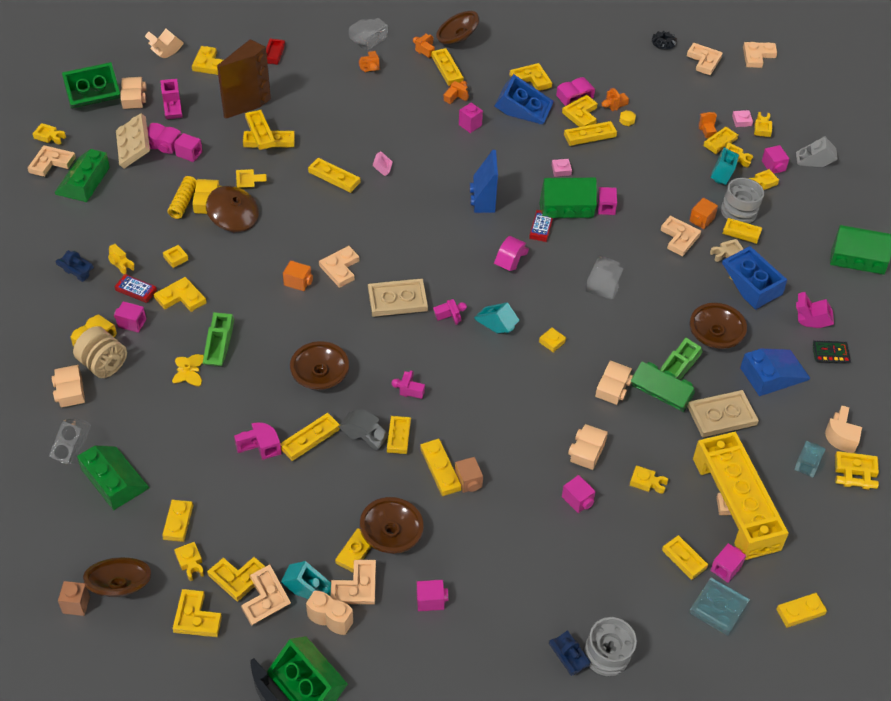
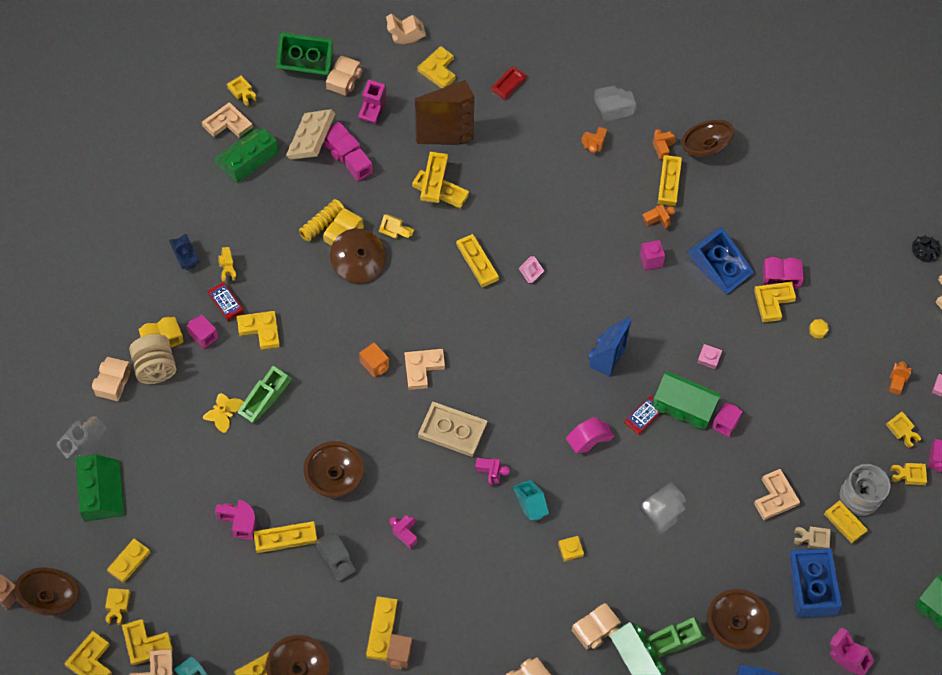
camera: 30 degrees right, 10 degrees up
(175, 256) = (278, 283): yellow plate -> none
(398, 434) = (364, 576): yellow plate -> none
(534, 74) = (752, 228): yellow plate -> none
(590, 133) = (765, 330): yellow plate -> none
(615, 100) = (818, 302): orange piece -> none
(703, 213) = (817, 482): orange brick -> none
(720, 140) = (899, 402): yellow plate -> none
(724, 166) = (878, 437): teal slope -> none

